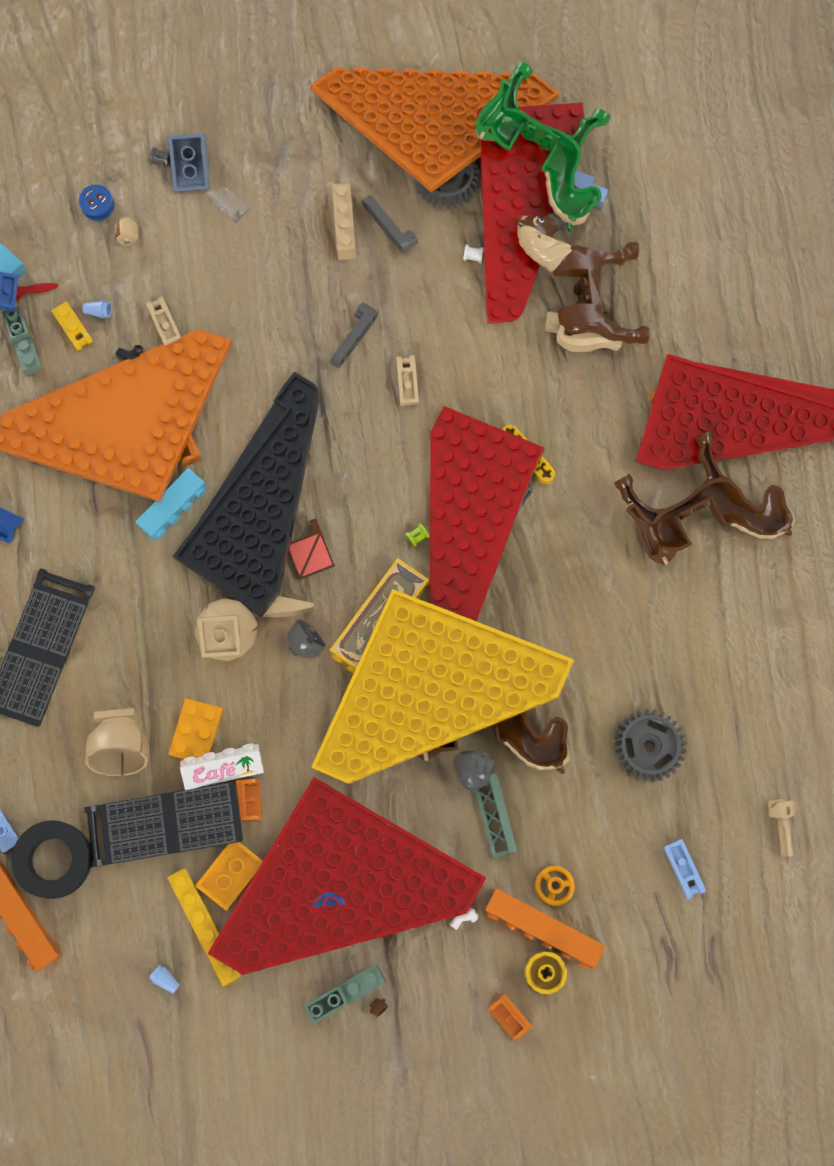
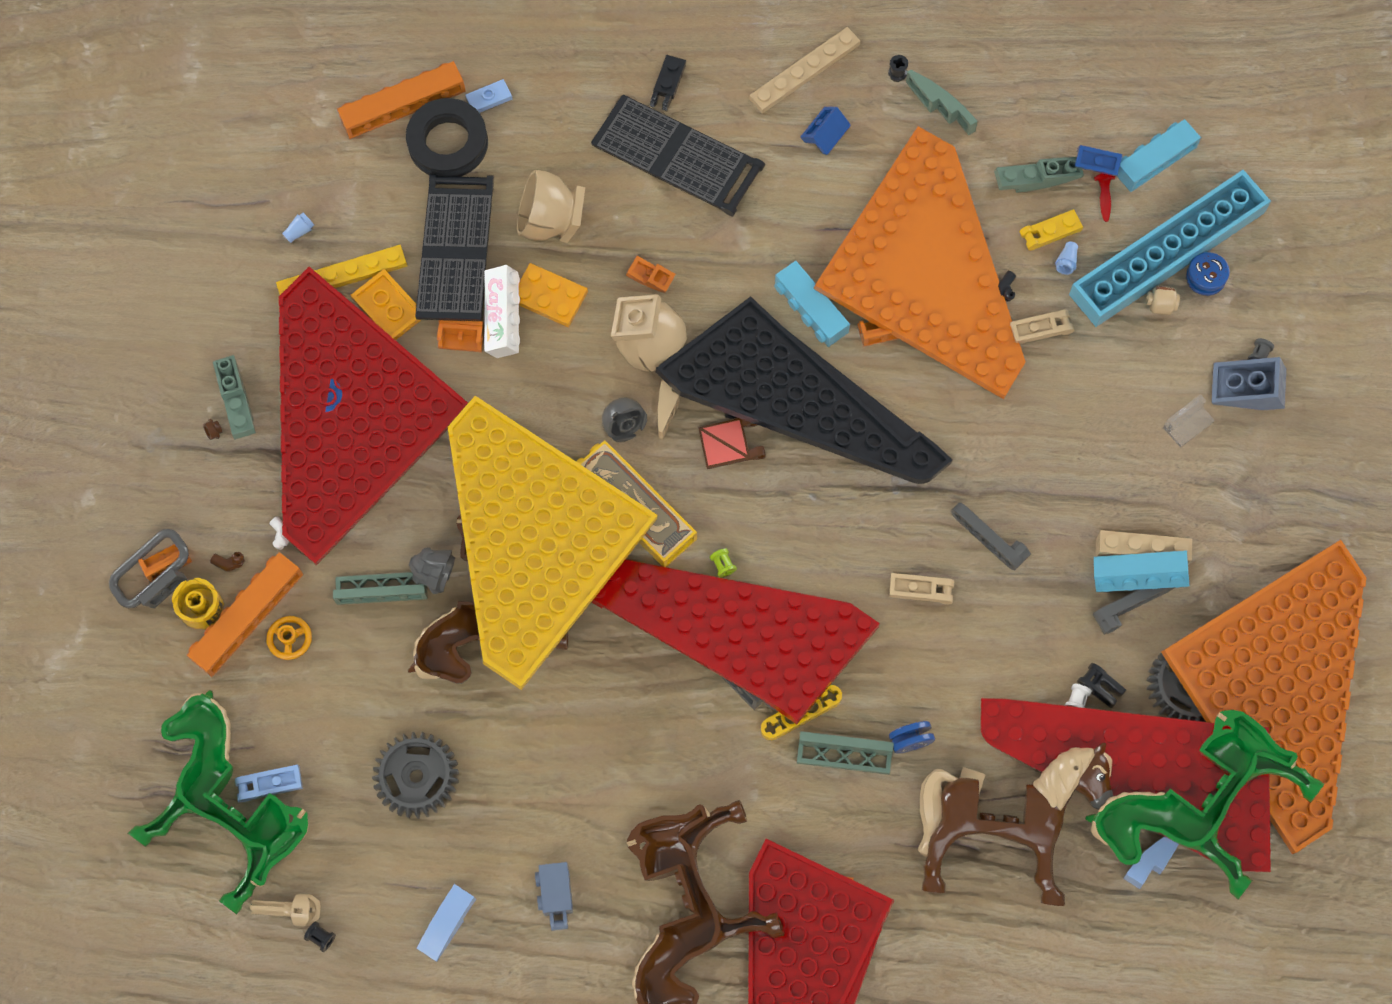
camera: 105 degrees right, 5 degrees down
(79, 231) = (1169, 248): none -> medium azure brick
(163, 646) = (650, 275): none -> orange slope
(365, 217) = (1141, 571): none -> medium azure brick
(458, 244) = (1104, 679): none -> black piece
(500, 957) = (229, 564): none -> reddish brown arm
(533, 365) = (909, 738): none -> blue head
(536, 1013) = (161, 586): none -> dark grey bar
(547, 414) = (843, 743): none -> sand green fence
(716, 612) = (555, 893): none -> sand blue brick
(729, 857) = (267, 833): none -> green animal
(760, 693) = (446, 922): none -> light blue slope
(798, 792) = (319, 936): none -> black bush

